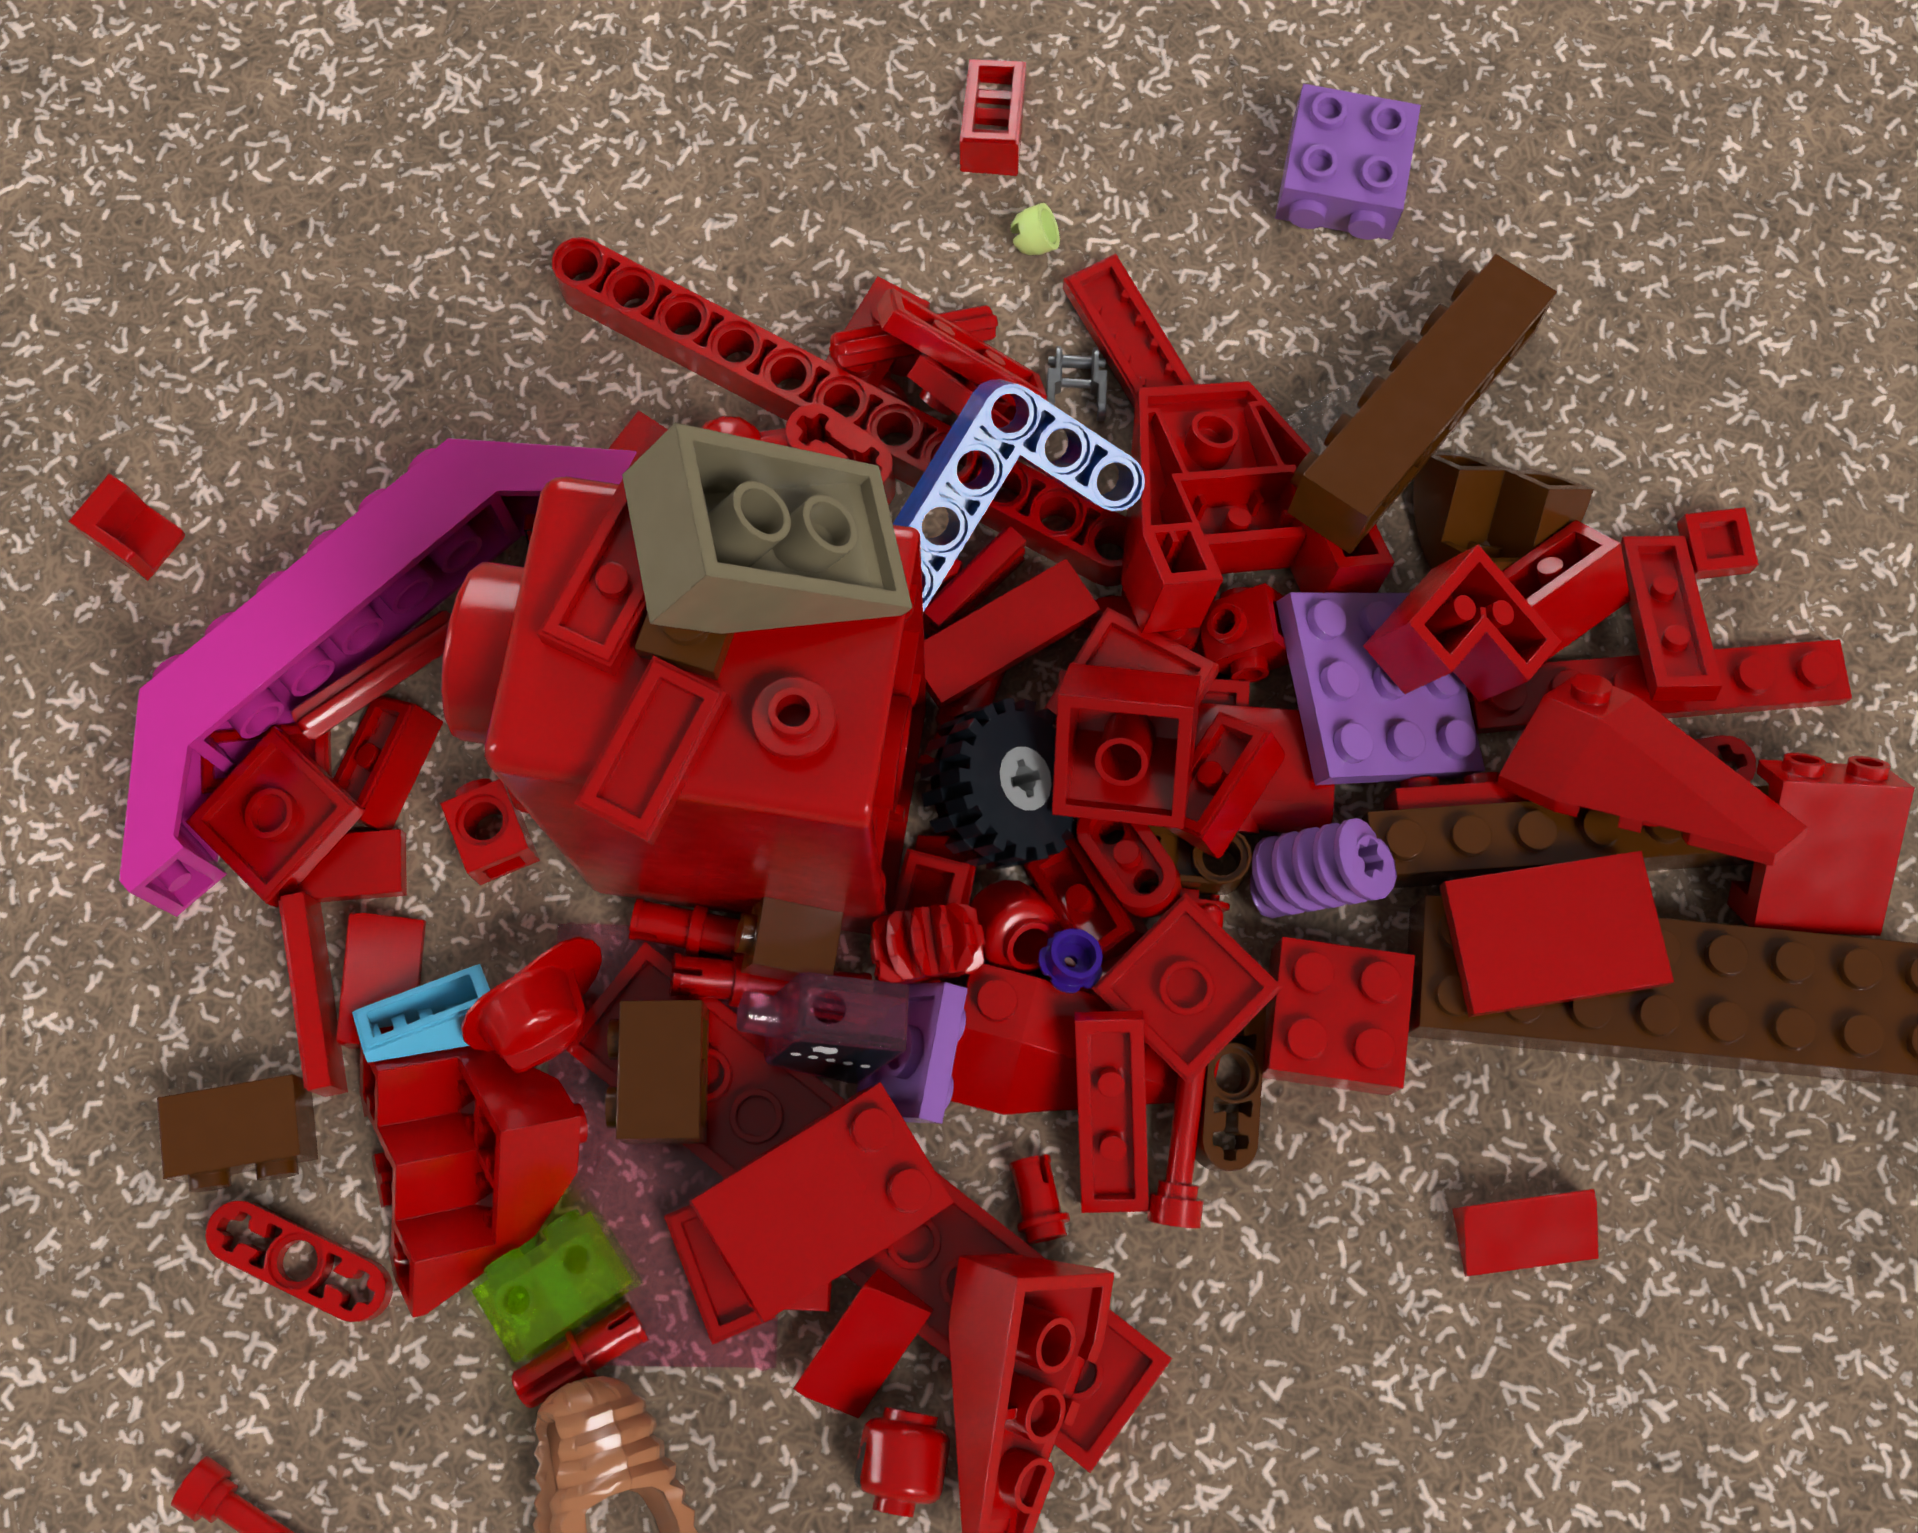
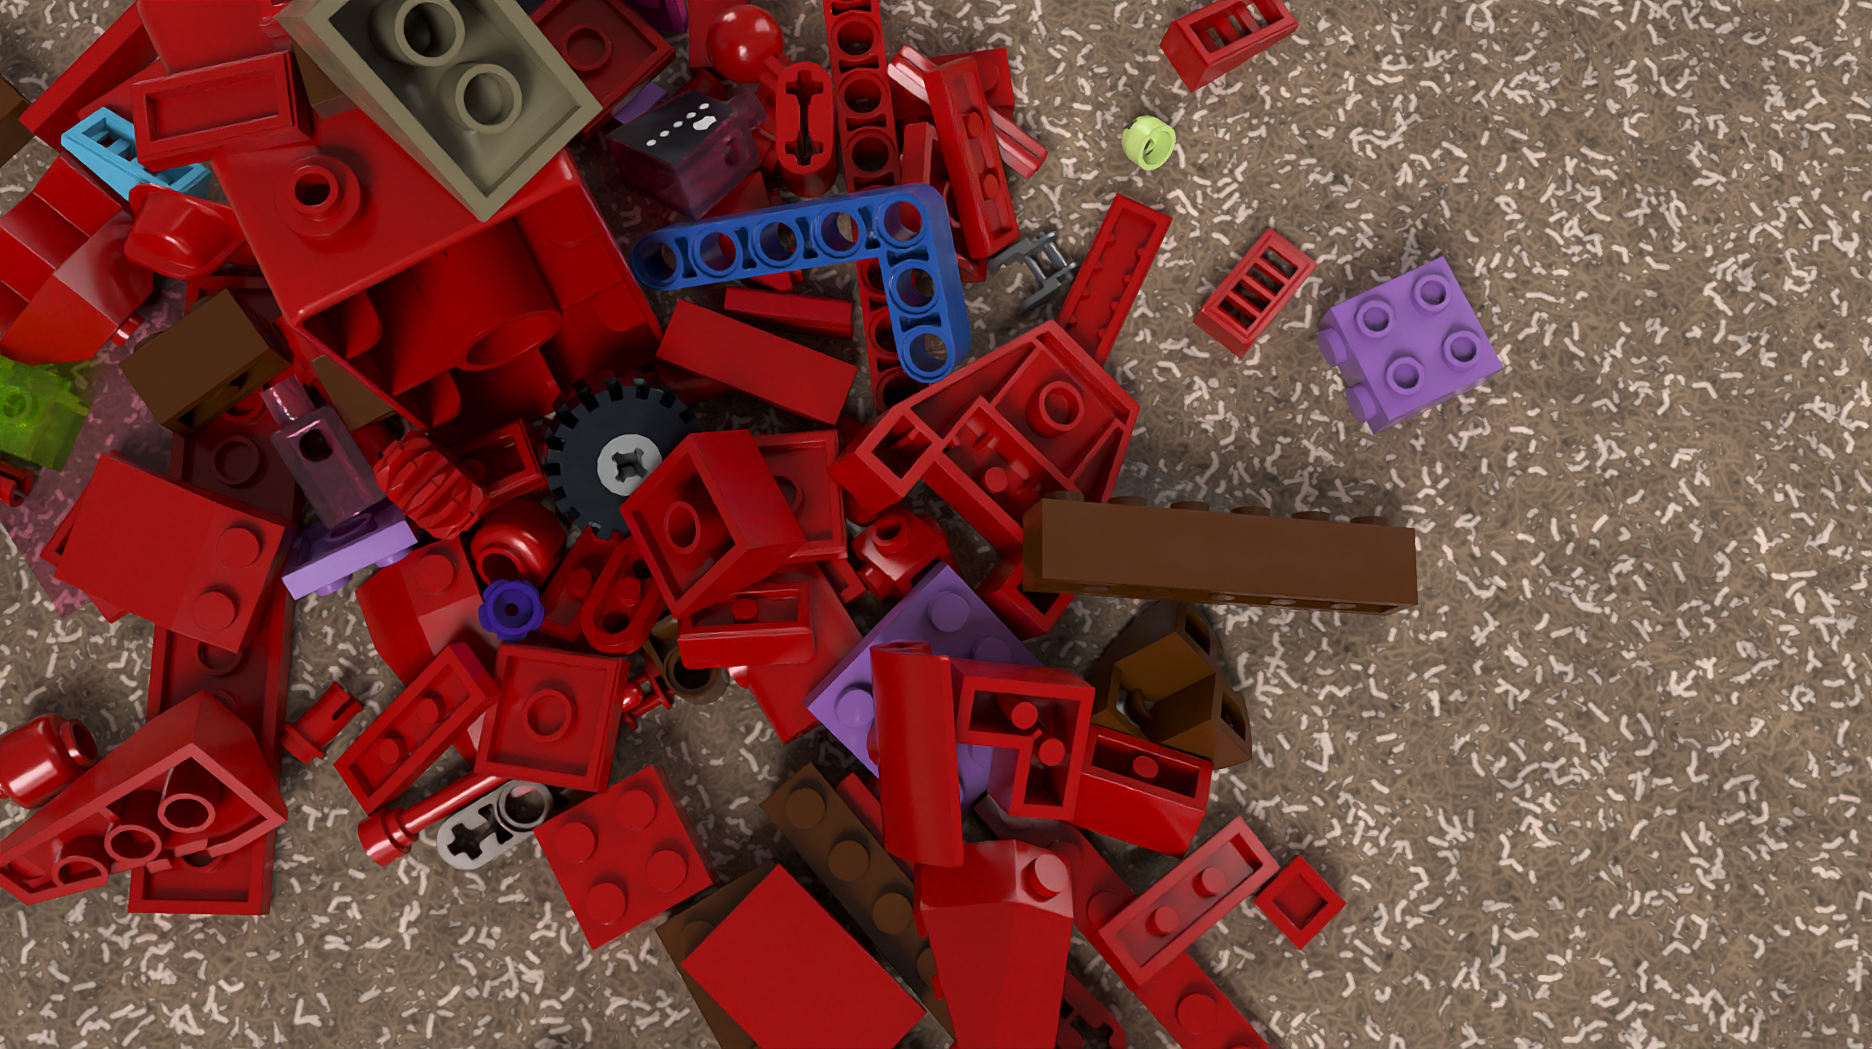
camera: 55 degrees right, 5 degrees up
(864, 1346) = (110, 668): red slope -> none
(1227, 280) = (1227, 328): none -> red slope
(1320, 869) = (733, 757): medium lavender piece -> none
(1438, 707) = (916, 753): none -> red panel

